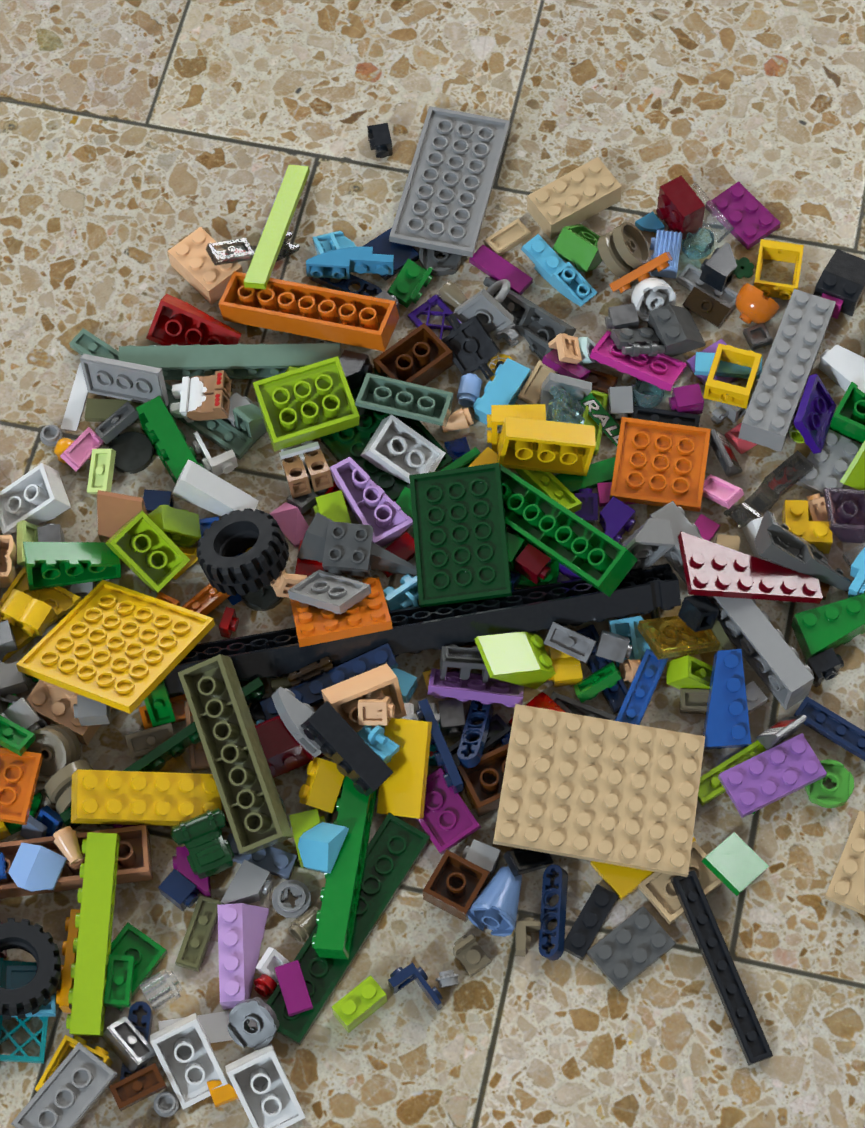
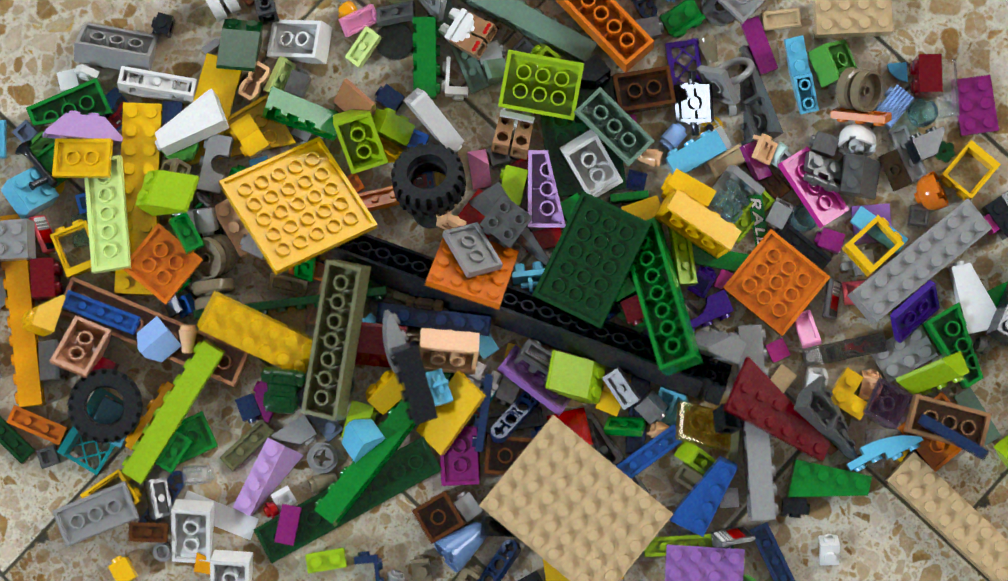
camera: 25 degrees right, 20 degrees up
(228, 622) = (391, 225): red plate -> none
(266, 1022) = (255, 530): plate -> none
(375, 711) = (449, 367): light nougat bracket -> none

